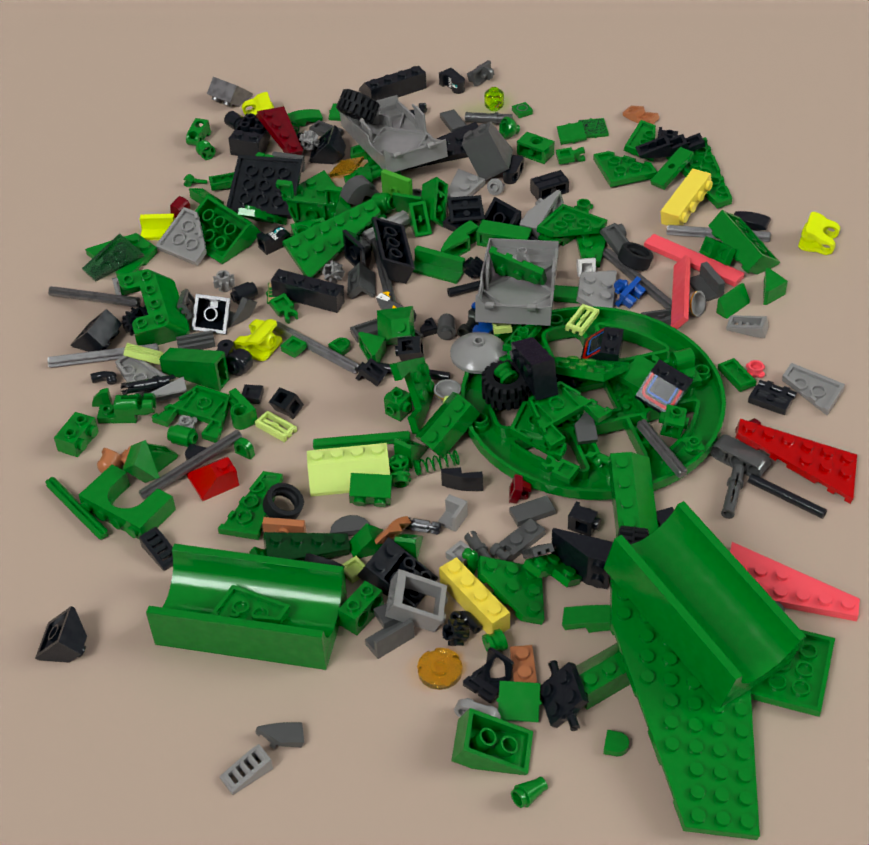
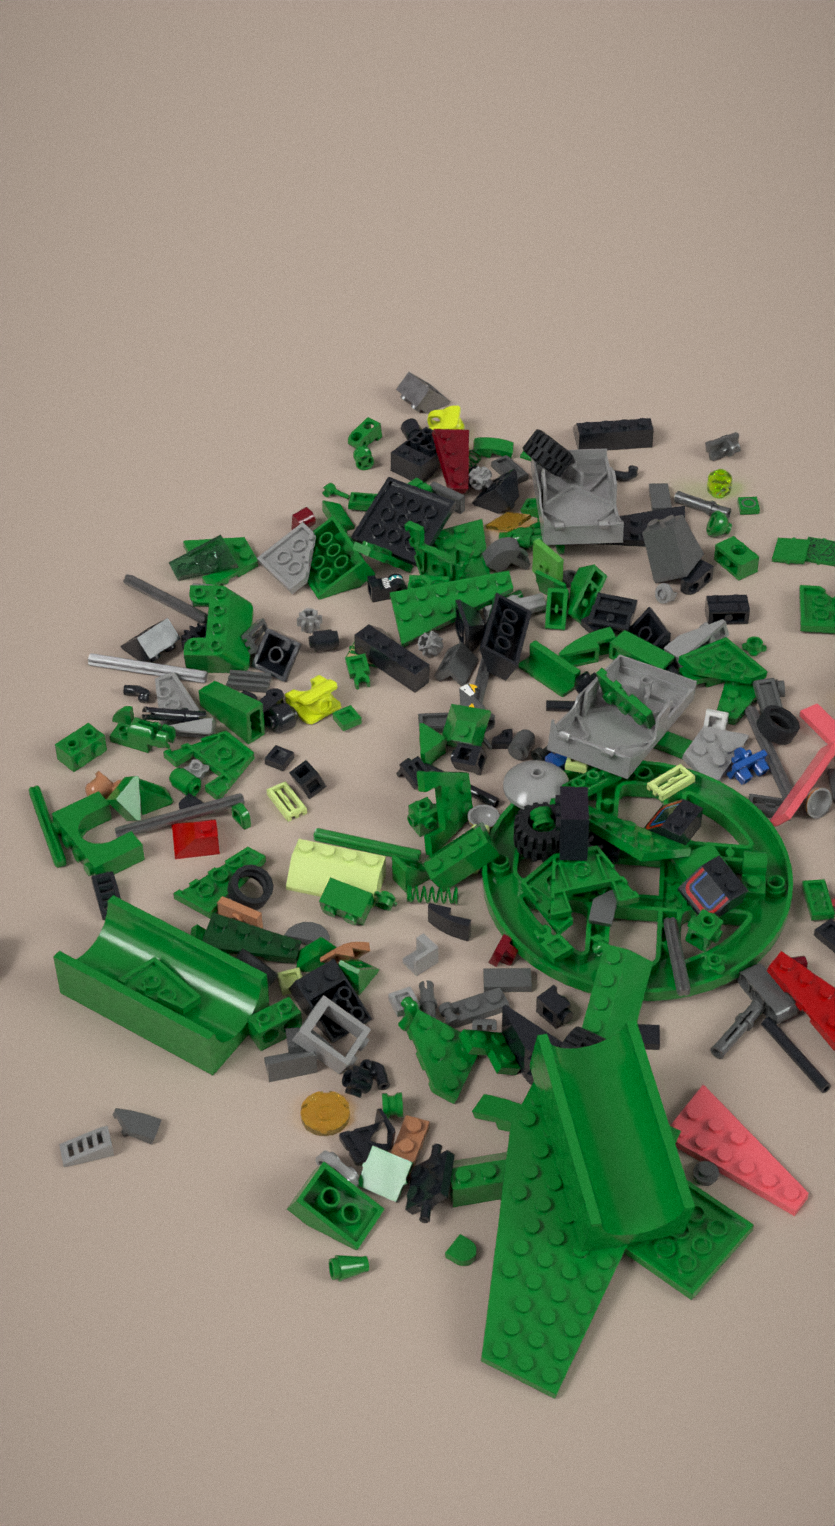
camera: 20 degrees right, 0 degrees up
(142, 353) = (185, 678): yellowish green tile -> none
(155, 225) = (266, 534): neon yellow panel -> none
(241, 411) = (256, 775): green plate -> none
(243, 312) = (313, 662): dark grey slope -> none
(318, 348) = (371, 725): flat silver axle -> none
(340, 345) = (398, 732): green tile -> none
(384, 202) = (524, 578): green head -> none
(399, 463) = (392, 883): green wheel -> none
(424, 526) = (384, 958): black axle -> none
(452, 80) = (685, 445): black leg -> none
(465, 184) = (630, 581): light grey wing -> none
(474, 596) = (395, 1051): light yellow brick -> none
(568, 155) = (770, 577): green plate -> none

